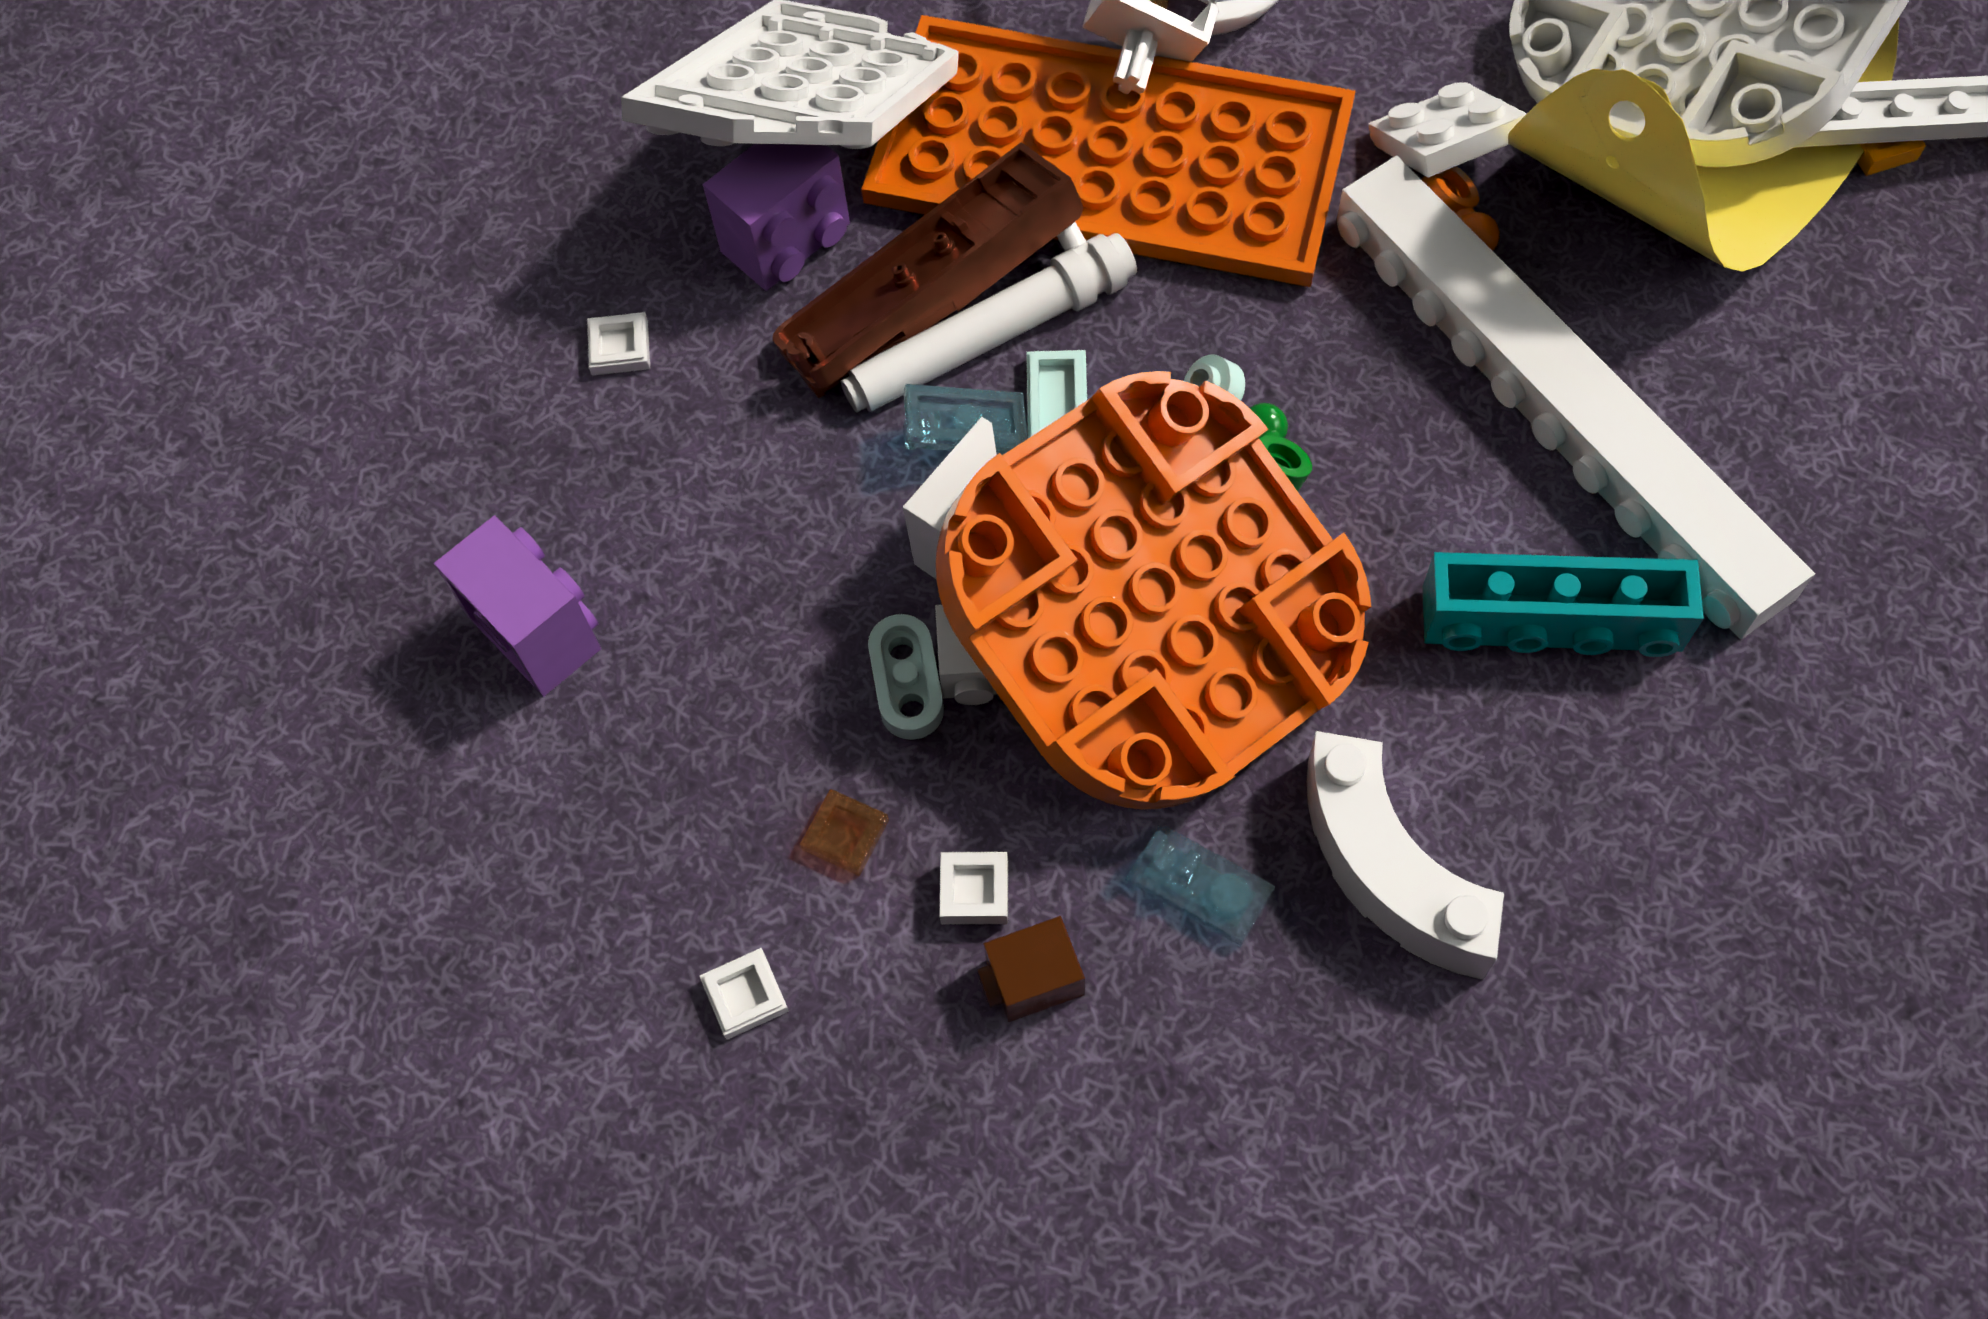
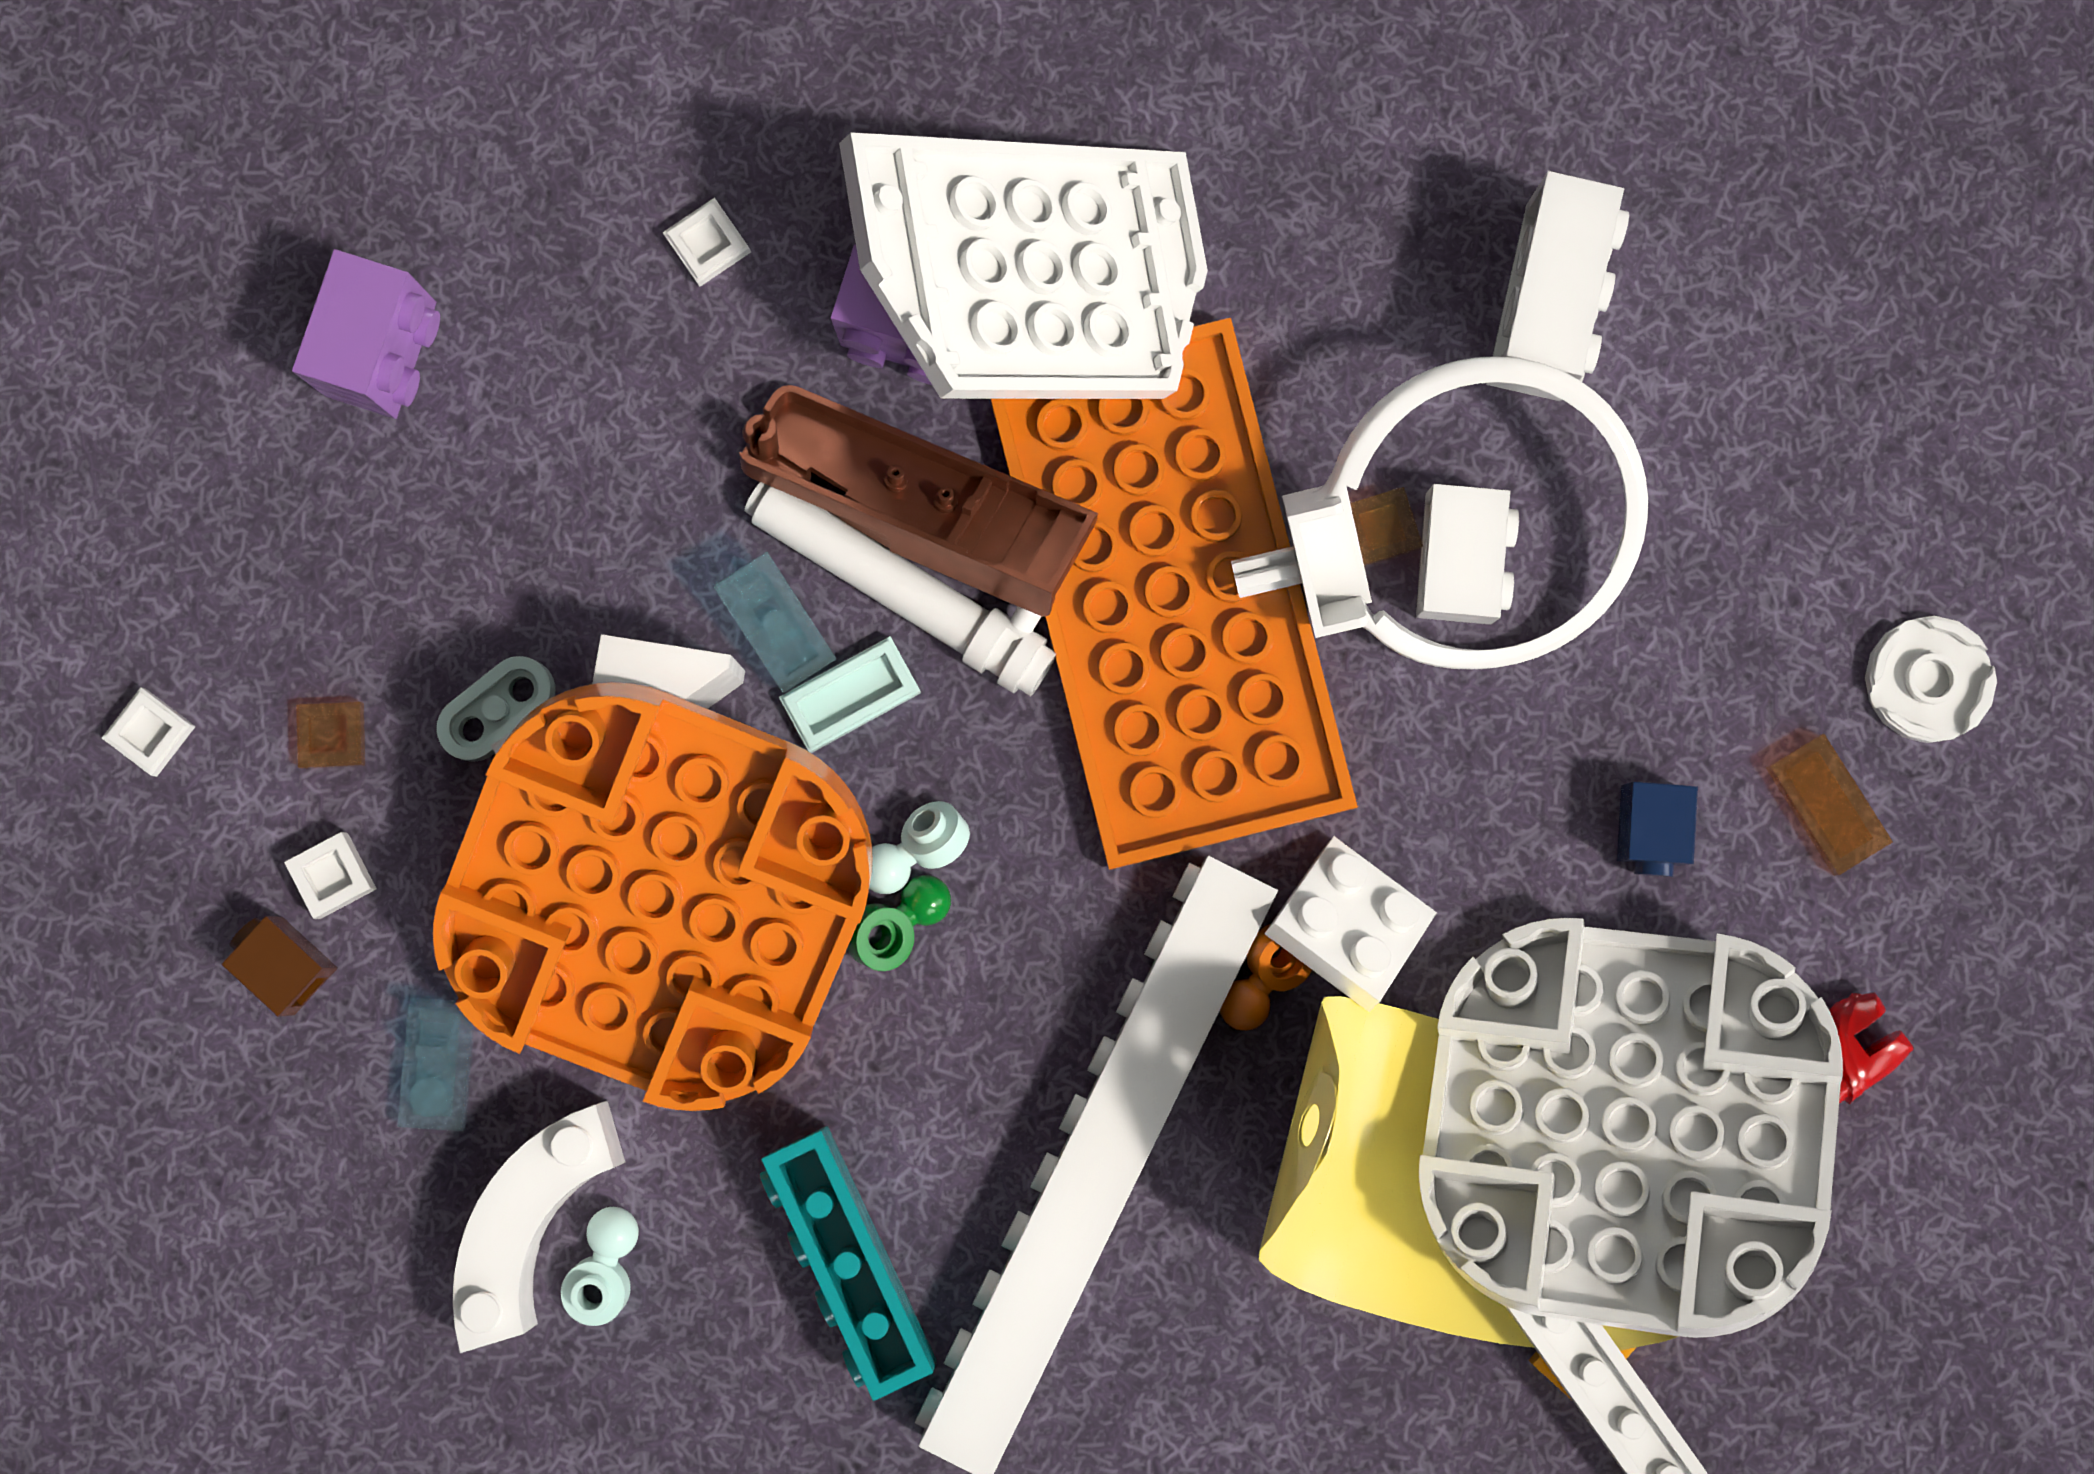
camera: 60 degrees right, 20 degrees up
(1439, 802) = (611, 1236): none -> light aqua plate

